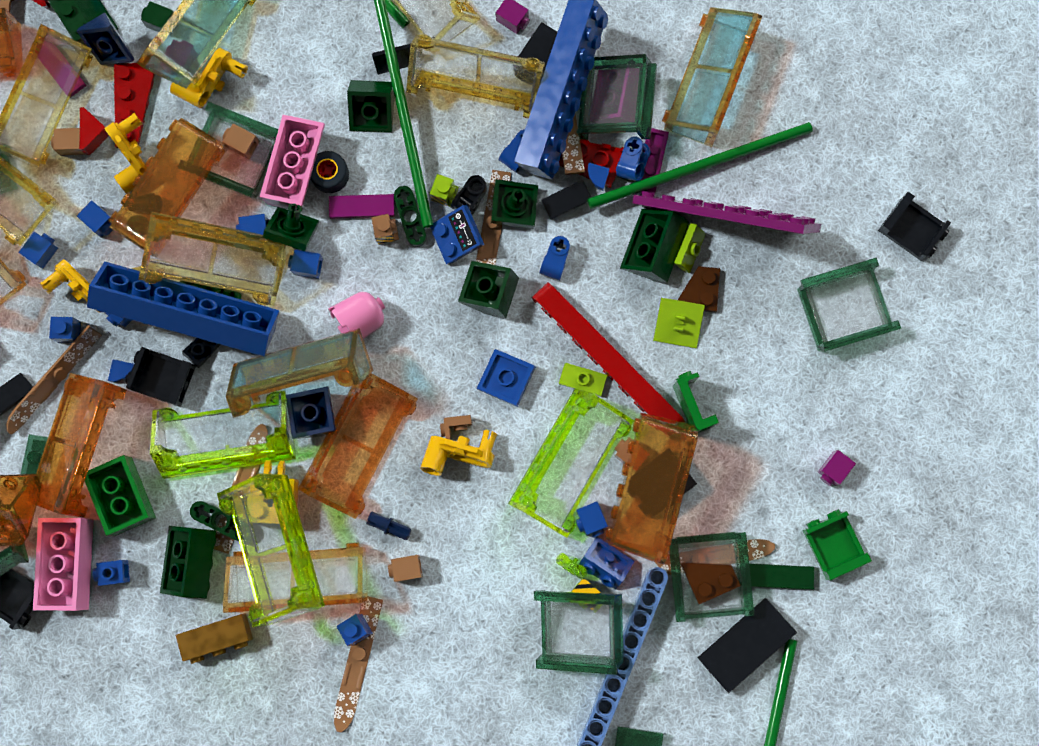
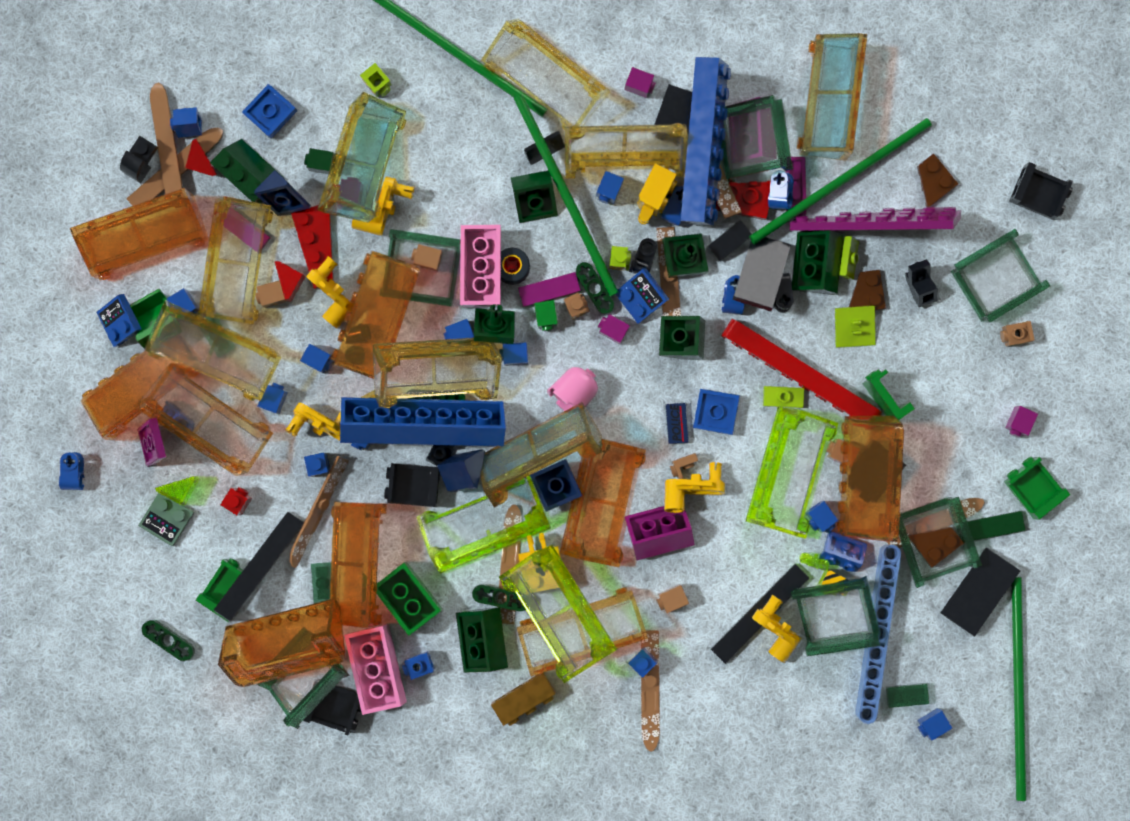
camera: 20 degrees left, 5 degrees up
(119, 370) = (375, 488): blue tile -> none
(213, 373) = (462, 470): none -> dark blue slope
(350, 231) = (546, 315): none -> green brick
(388, 526) = (648, 566): dark blue axle -> none
(409, 492) = (658, 532): none -> magenta slope
(418, 262) = (613, 328): none -> magenta brick
(452, 114) = (609, 188): none -> blue brick
(460, 379) = (676, 423): none -> dark blue tile
(496, 609) = (746, 625): none -> black tile
(497, 129) = (654, 193): none -> yellow hinge
(520, 642) = (787, 638): none -> yellow piece
(590, 240) = (762, 273): none -> tile
(598, 175) = (753, 212): blue tile -> none
(608, 264) = (785, 292): none -> black piece
(760, 292) = (920, 283): none -> black brick
(802, 188) = (935, 179): none -> reddish brown wing
(845, 377) = (1025, 331): none -> medium nougat brick

